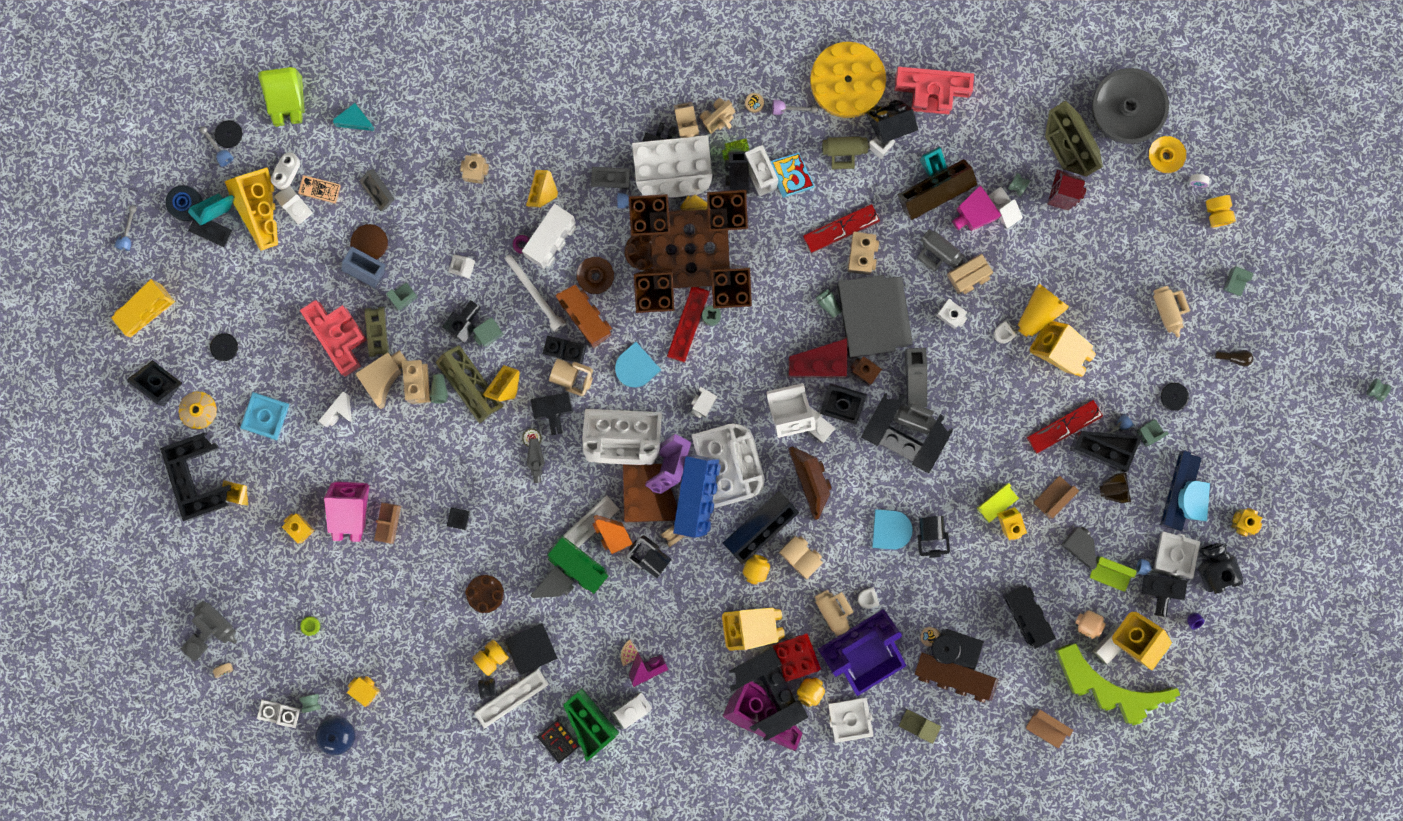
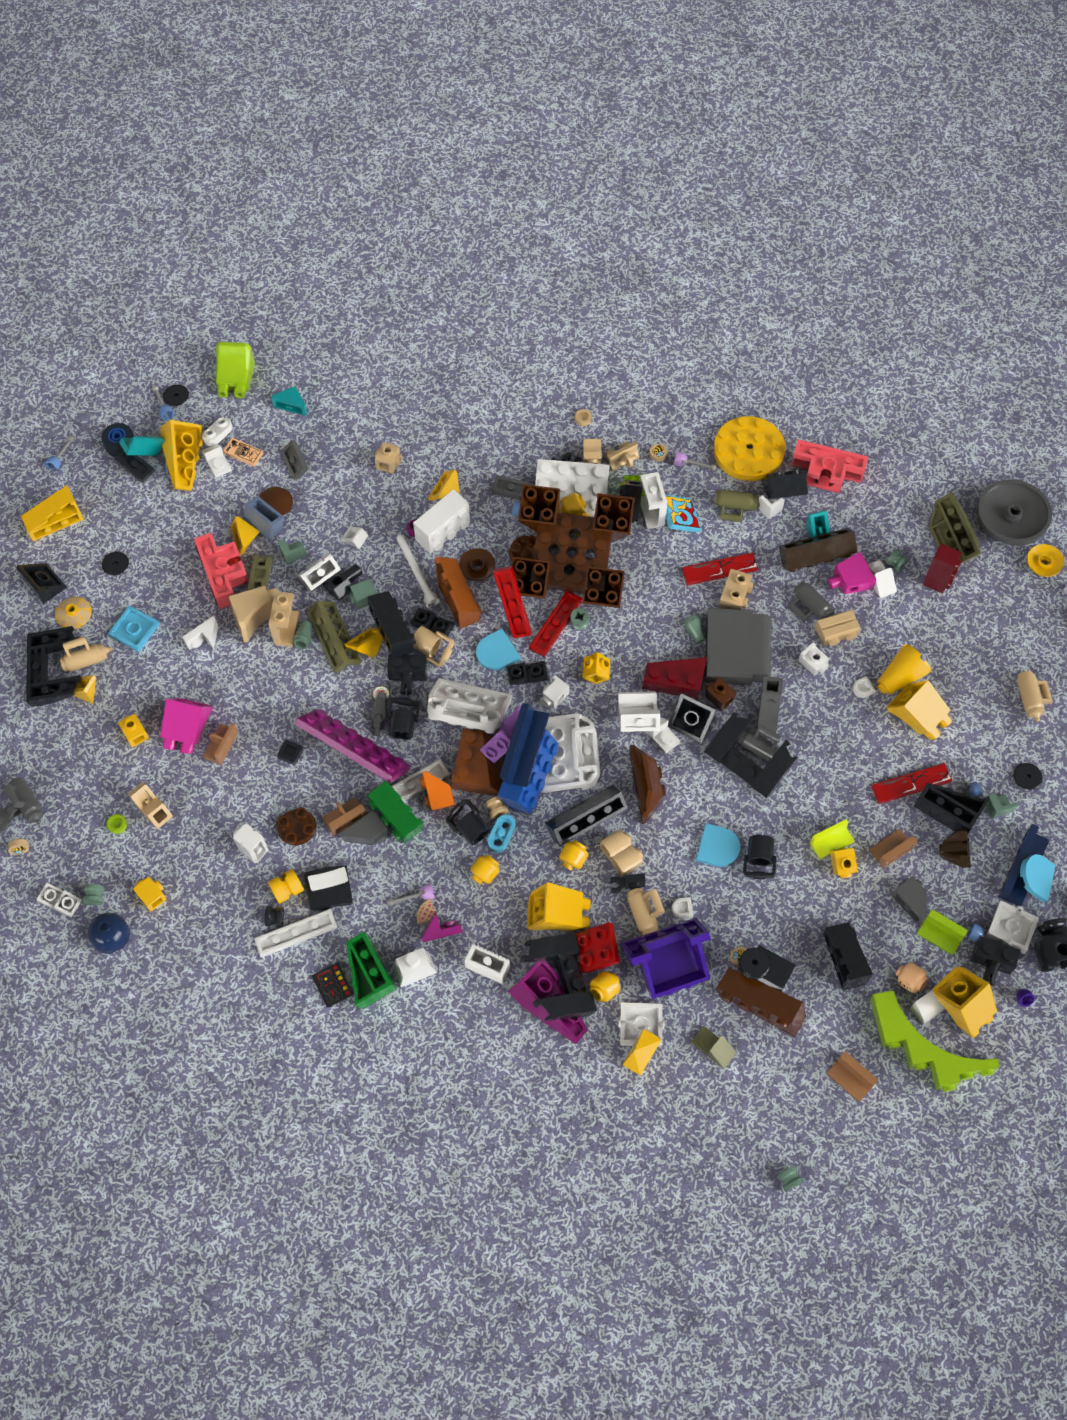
camera: 15 degrees right, 20 degrees down
(222, 458) = (83, 657): none -> tan piece
(338, 604) = (150, 805): none -> tan brick
(347, 289) = (243, 534): none -> yellow slope
(436, 318) = (318, 572): none -> white brick
(445, 624) = (250, 843): none -> white brick
(518, 502) = (353, 745): none -> magenta plate
(525, 365) = (391, 624): none -> black brick
(527, 573) = (344, 816): none -> medium nougat panel
(529, 642) = (328, 879): none -> white sticker
(562, 466) = (402, 720): none -> black piece
(624, 634) = (426, 892): none -> hinge
(642, 320) = (512, 602): none -> red tile
(667, 75) = (583, 417): none -> tan tile
(671, 385) = (525, 674): none -> black slope
(675, 600) = (484, 869): none -> yellow head
(680, 195) = (573, 504): none -> yellow head
(683, 560) = (500, 834): none -> medium azure plate
(690, 482) = (524, 746): none -> dark blue panel
(698, 695) = (487, 964): none -> white brick
(739, 368) = (596, 668): none -> yellow brick
(818, 585) = (628, 881): none -> black plate
(856, 746) = (641, 1051): none -> yellow slope

